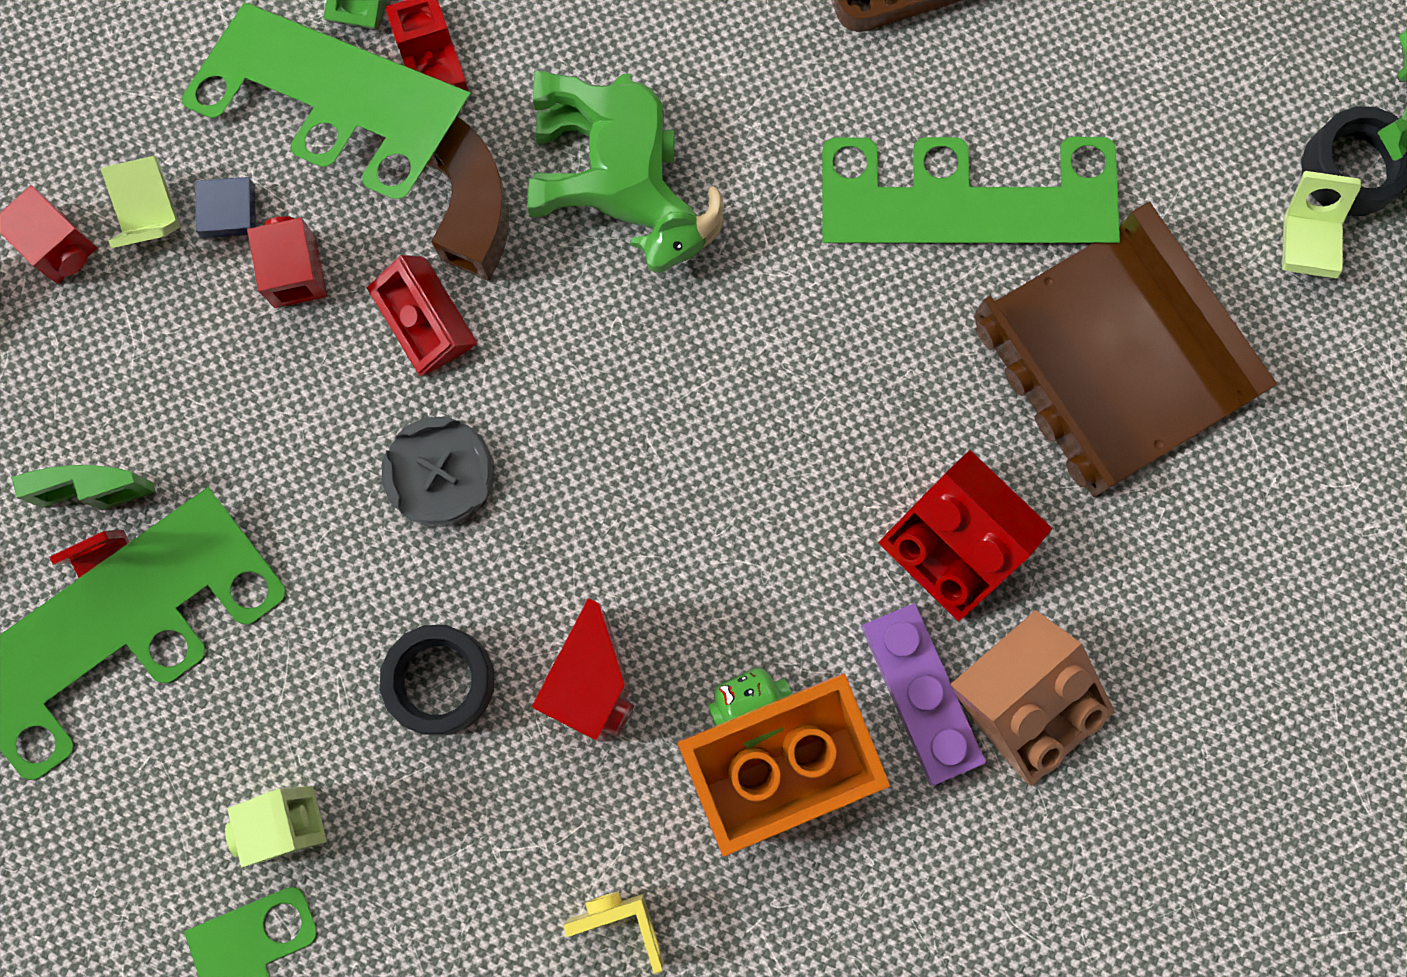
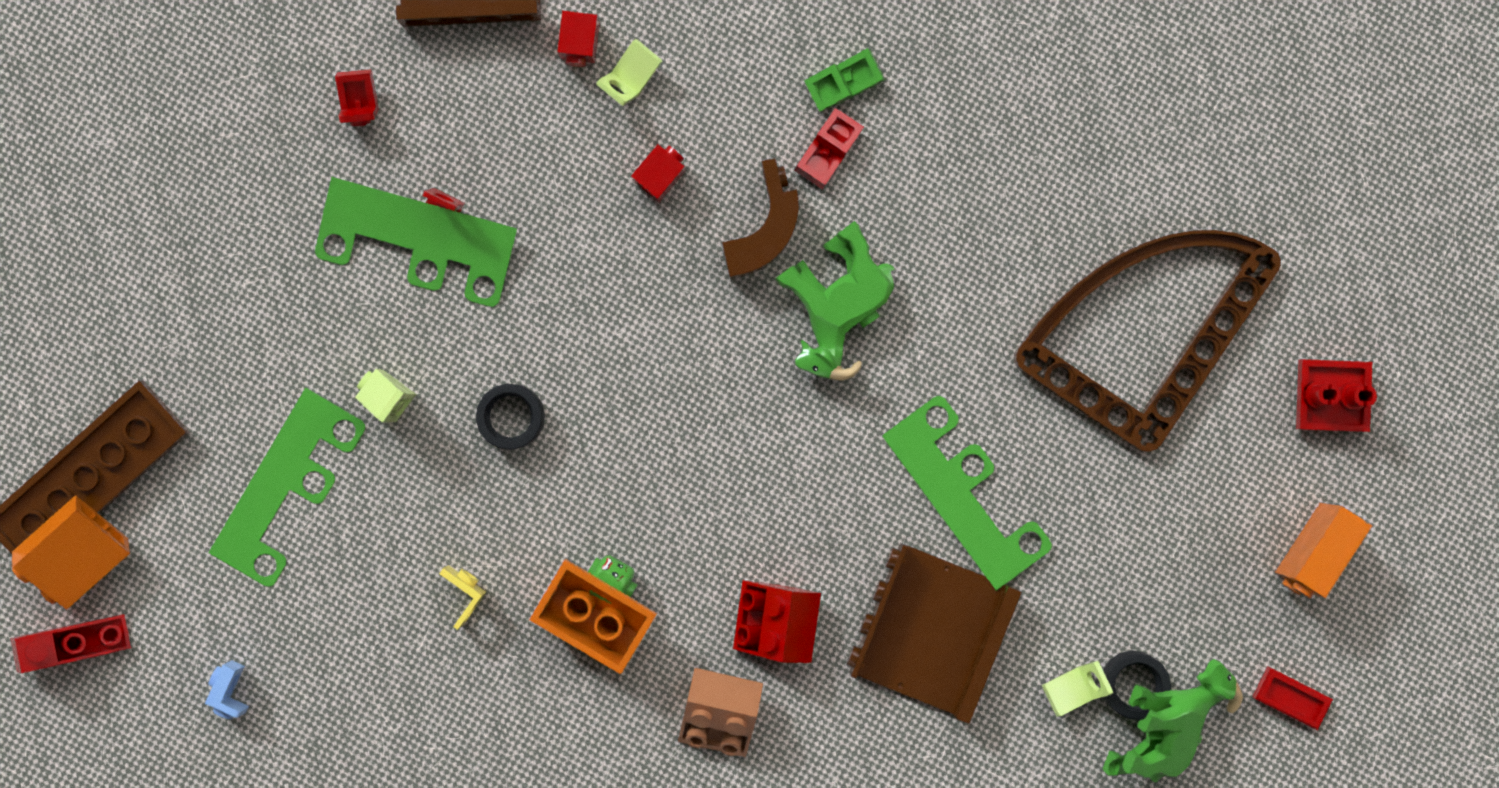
camera: 50 degrees right, 10 degrees up
(92, 484) = (476, 171): bright green slope -> none
(224, 207) = (664, 113): tile -> none
(341, 84) = (773, 122): bright green piece -> none
(421, 314) = (685, 259): red slope -> none
(438, 472) = (612, 333): dark grey tile -> none
(588, 679) = (562, 494): red slope -> none
(923, 694) = (683, 656): medium lavender plate -> none

